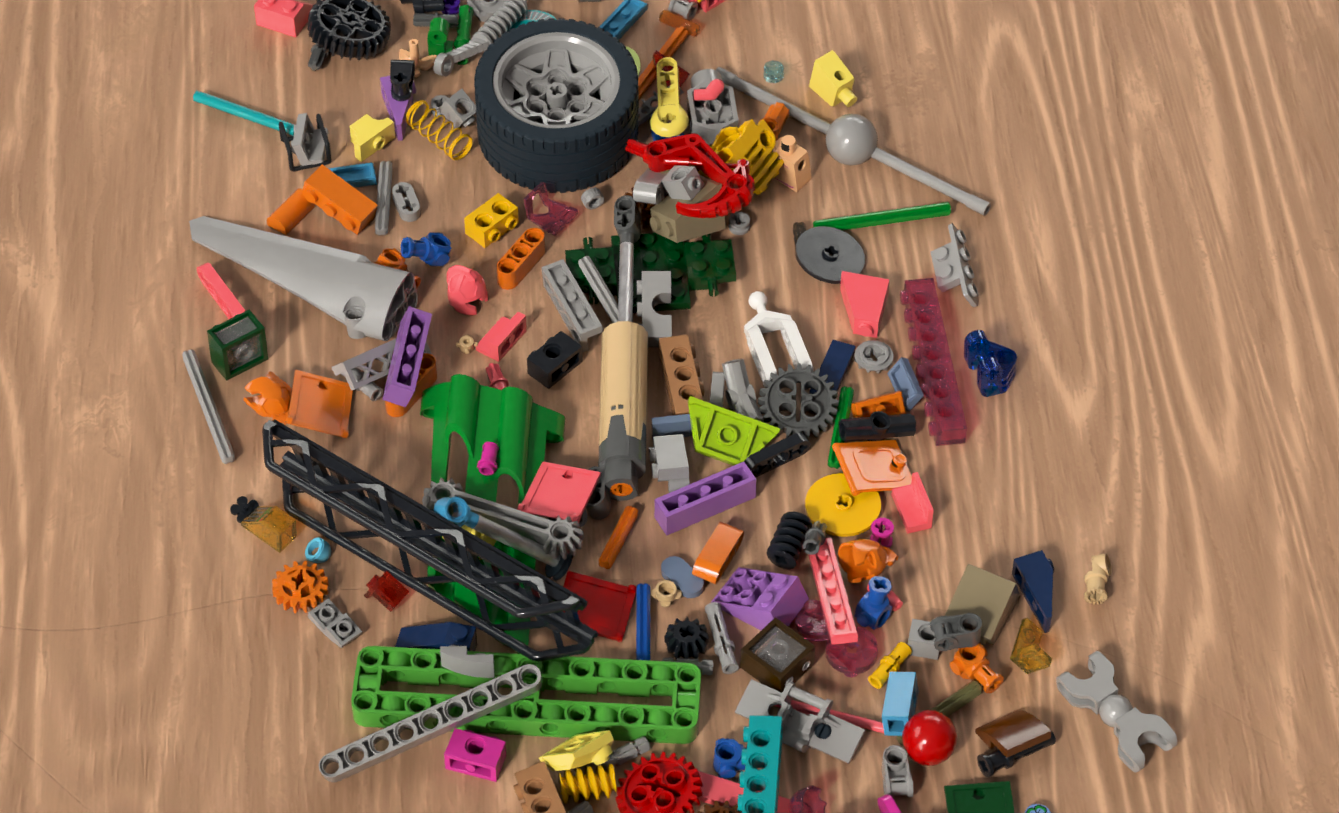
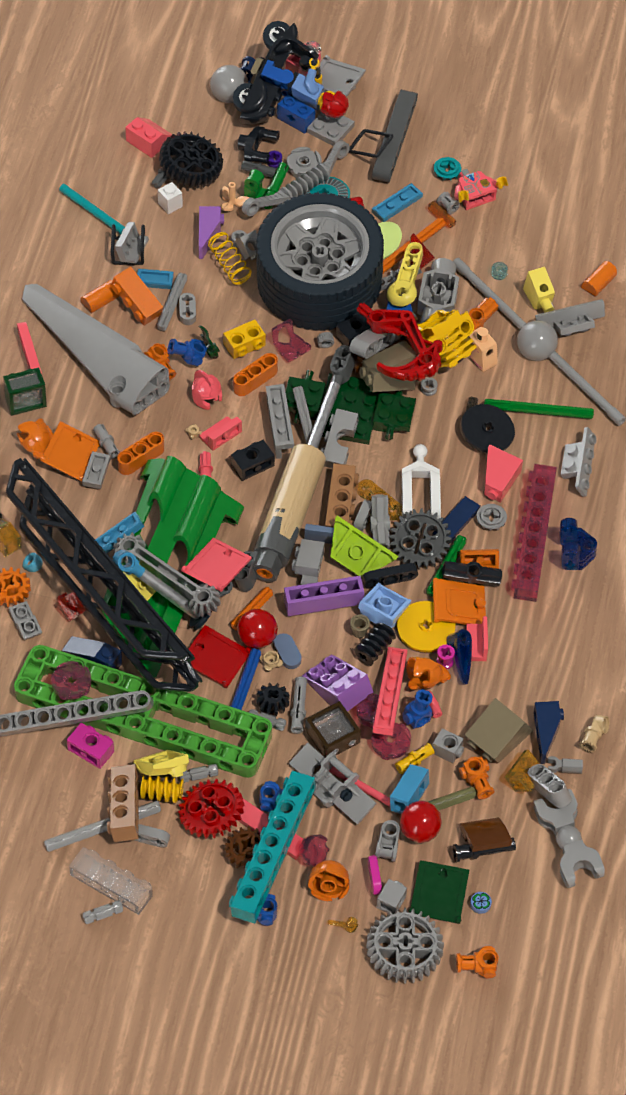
camera: 15 degrees right, 5 degrees up
(338, 77) = (170, 198): none -> white brick
(361, 419) = (96, 470): none -> light grey plate
(368, 357) = (114, 424): light grey fence -> none
(370, 135) = (178, 250): light yellow brick -> none
(402, 77) = (213, 211): black piece -> none
(407, 356) = (141, 432): medium lavender brick -> none
(425, 692) = (71, 690): none -> clear pink plate
(430, 471) = (129, 524): none -> dark azure tile
(457, 240) = (212, 349): none -> dark green plate
(457, 660) = (108, 679): light grey slope -> none
(488, 464) = (169, 530): dark pink pin -> none
(623, 176) = (349, 329): none -> black brick
(636, 558) = (257, 628): none -> red piece
(683, 182) = (389, 346): light grey brick -> none
(711, 92) = (441, 278): coral arm -> none
(718, 358) = (375, 489): none -> clear yellow beam
(718, 552) = (318, 640): orange beam -> none
(762, 523) = (359, 621): none -> dark tan piece
(782, 492) = (383, 605): none -> light blue slope
(815, 538) = (393, 647): dark grey axle -> none
(886, 103) = (574, 318): none -> light grey bracket
(897, 52) = (600, 278): none -> orange brick
(897, 511) = (462, 644): none -> clear blue piece
(904, 380) = (506, 544): sand blue tile -> none
(956, 631) = (467, 747): dark grey piece -> none
(1072, 652) = (549, 785): none -> light grey beam
(1077, 626) = (565, 765): none -> light grey bar

